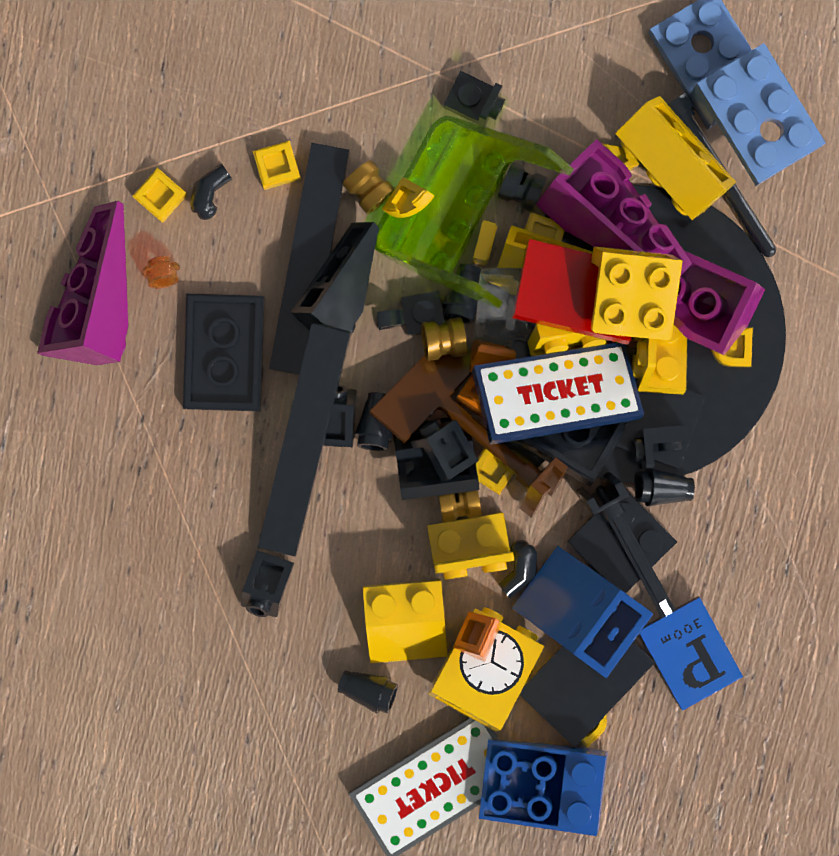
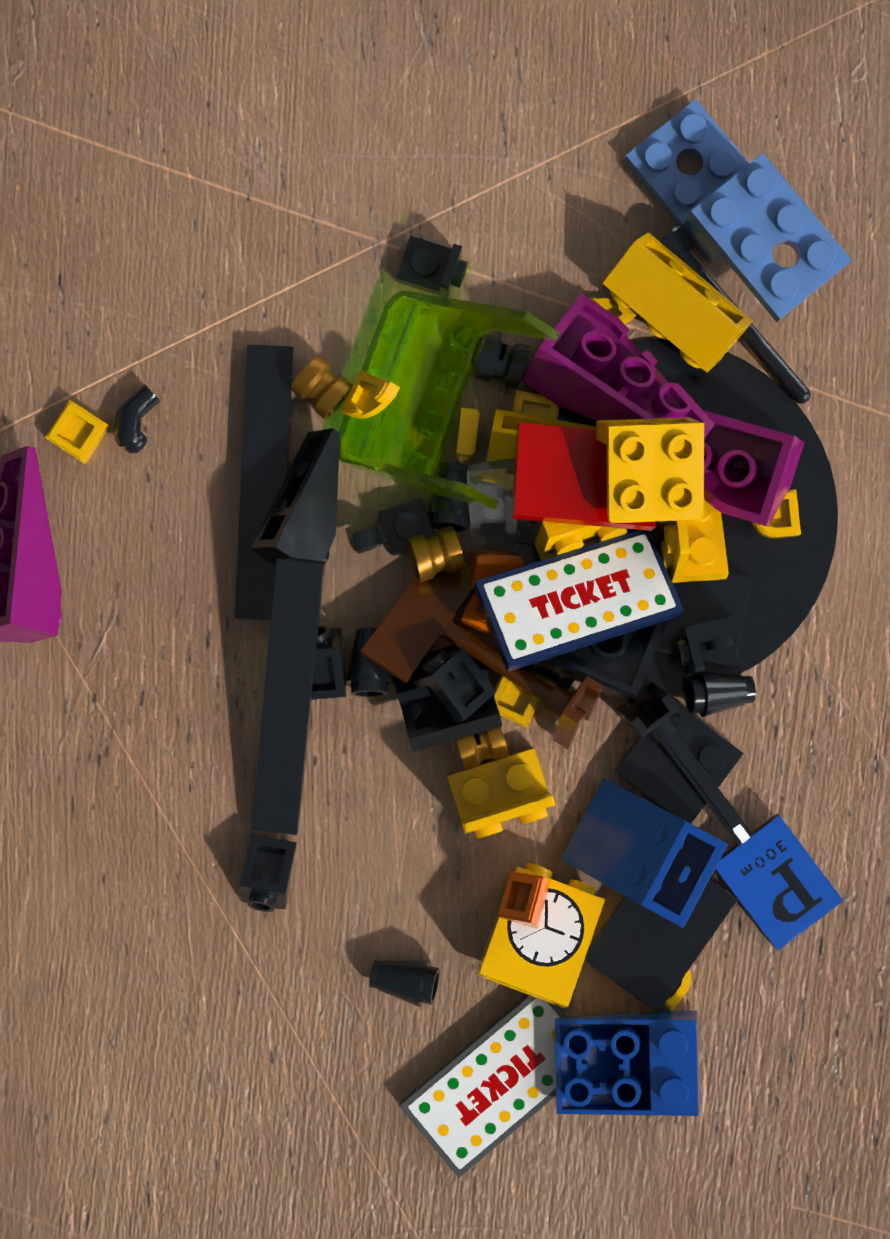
camera: 10 degrees left, 0 degrees up
(161, 272) = (92, 522): clear orange plate -> none
(223, 352) = (178, 606): black tile -> none
(276, 165) = (210, 376): yellow tile -> none
(405, 621) = (436, 892): yellow slope -> none
(524, 568) = (568, 810): black arm -> none

